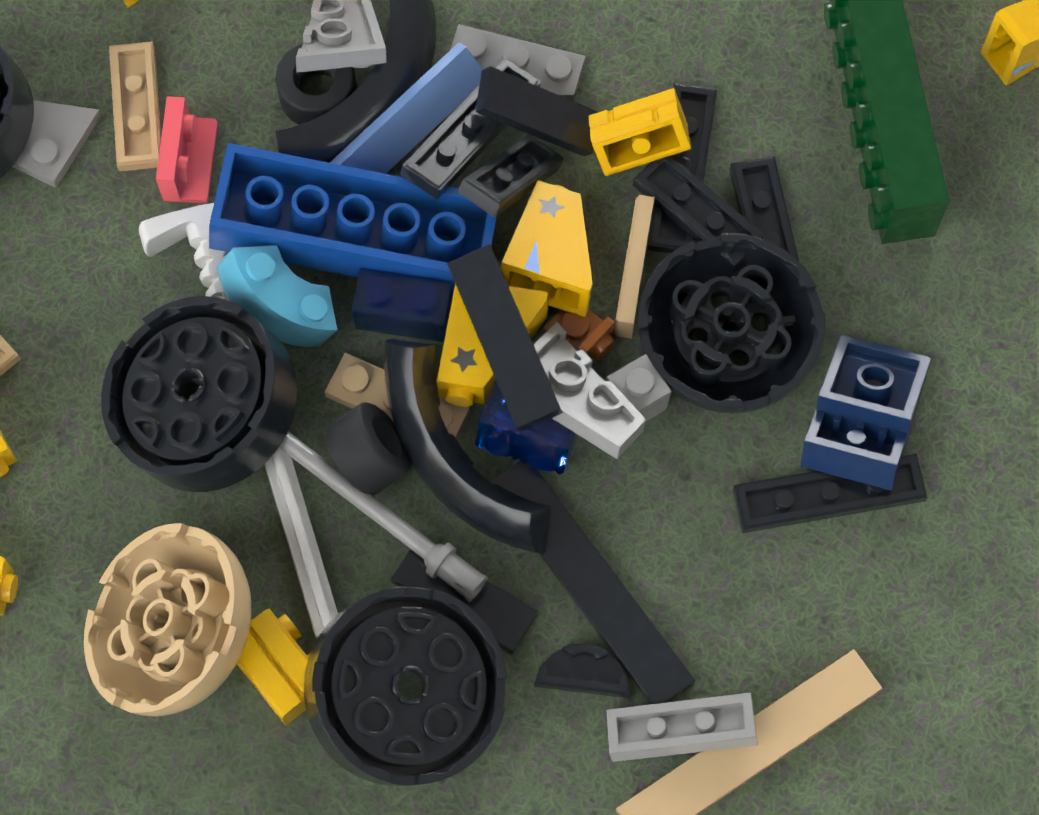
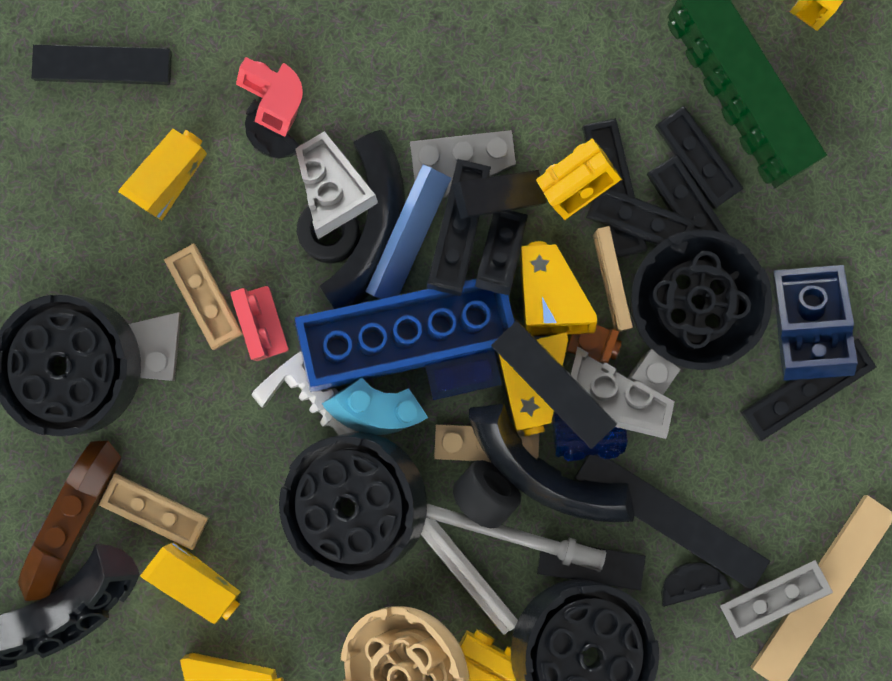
camera: 25 degrees left, 15 degrees up
(801, 172) = (699, 157): none -> black tile

